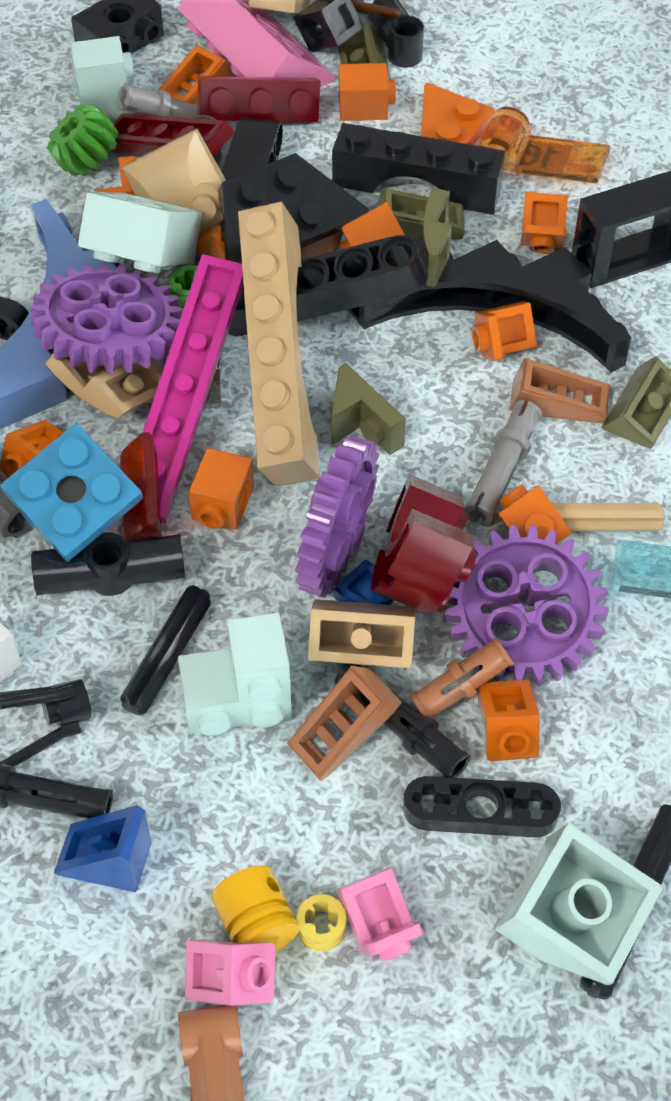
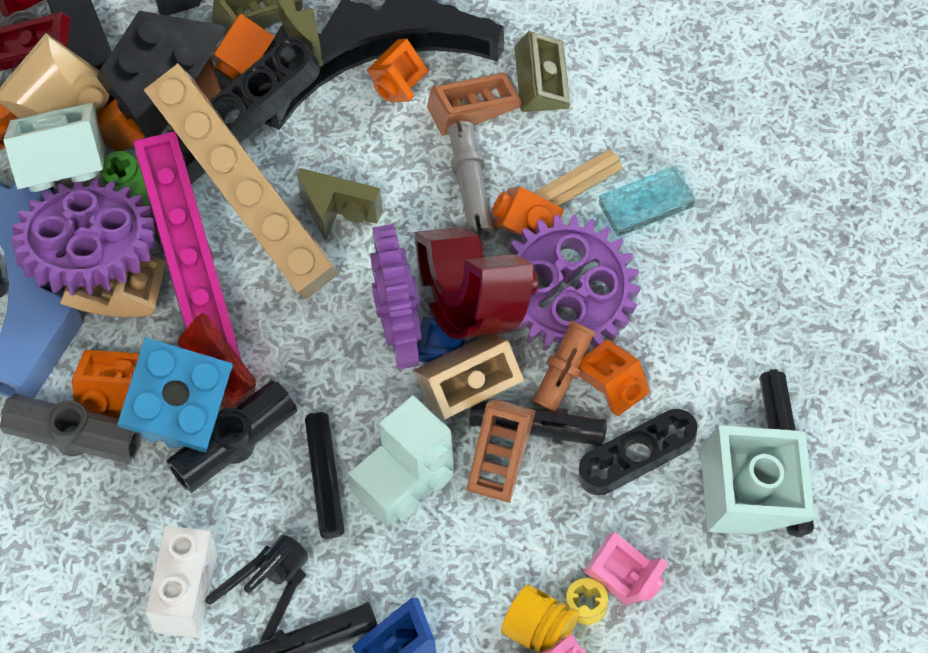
camera: 30 degrees left, 5 degrees up
(221, 489) = (274, 326): orange brick -> none

